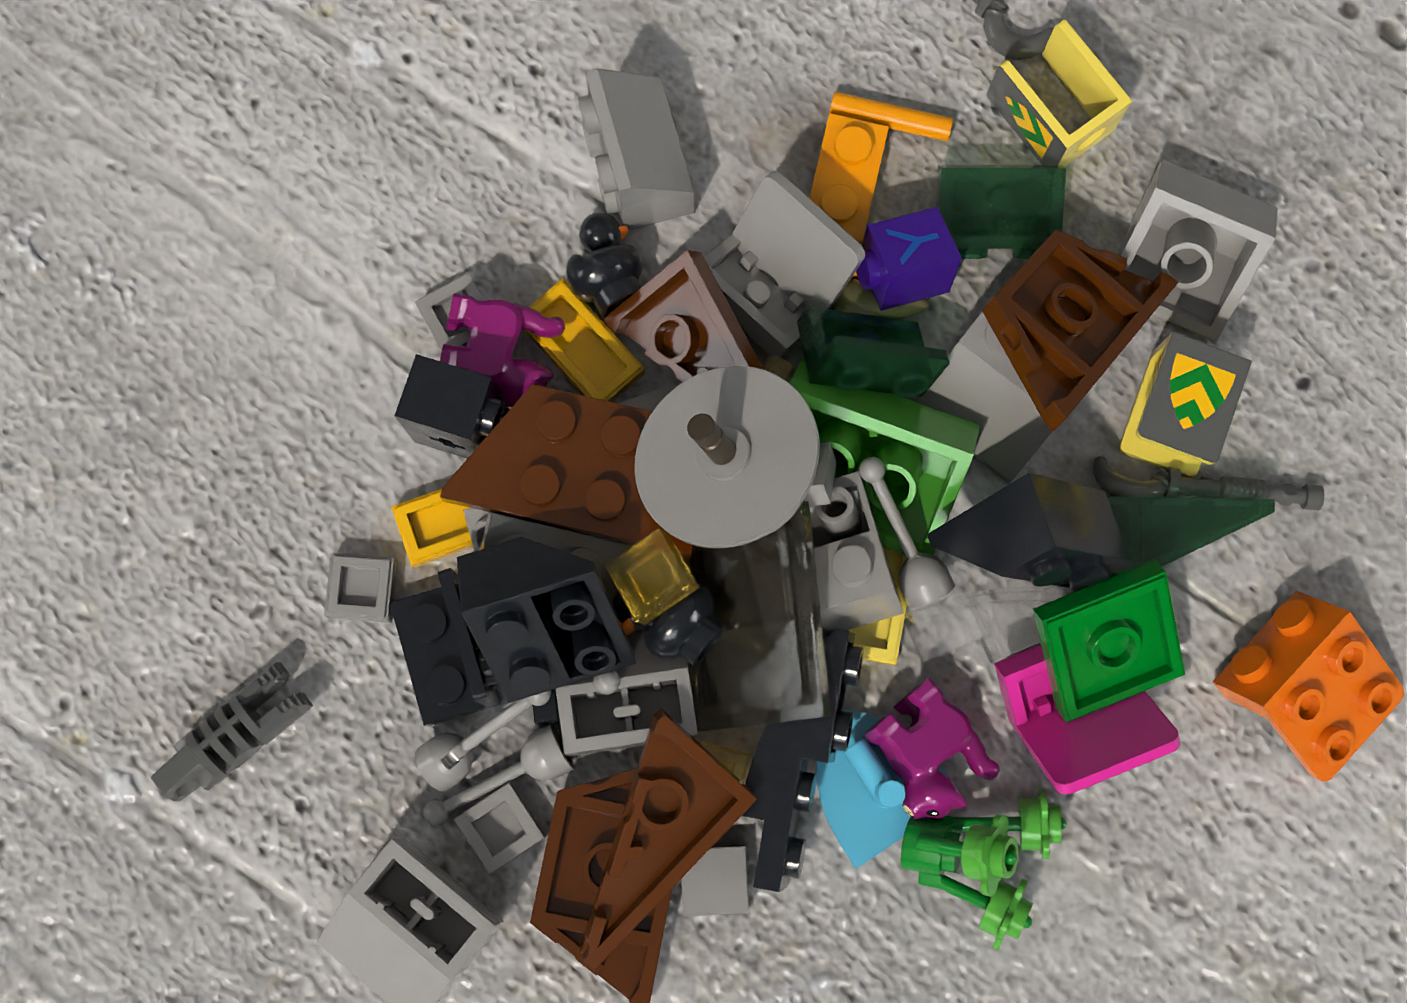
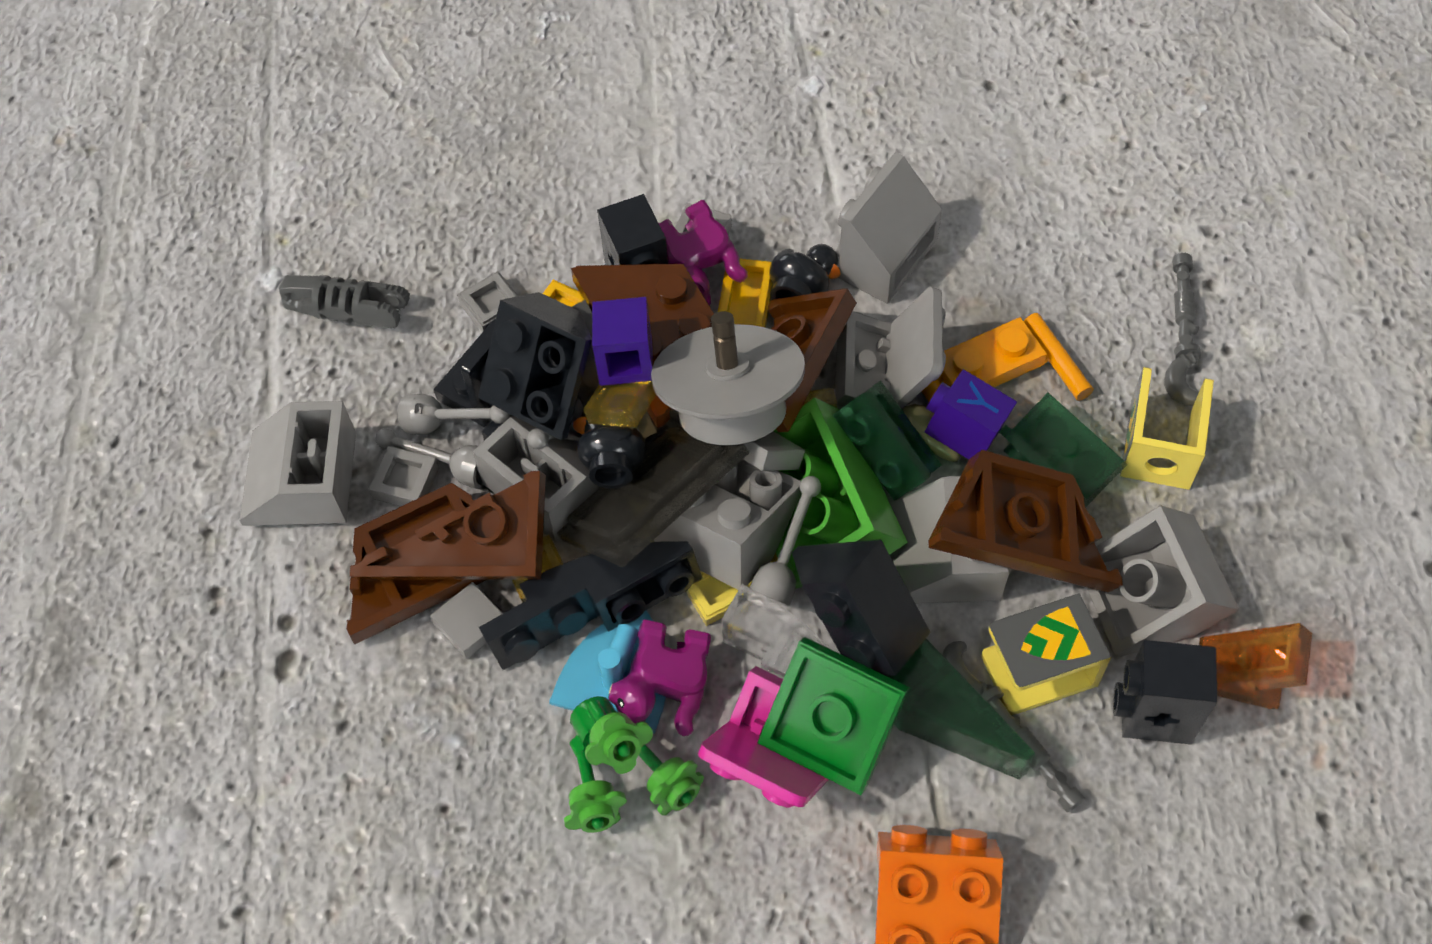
camera: 55 degrees right, 20 degrees down
(602, 525) = (622, 341): none -> dark purple brick
(1312, 341) = (1167, 692): none -> black brick
(1331, 241) = (1261, 662): none -> clear orange slope

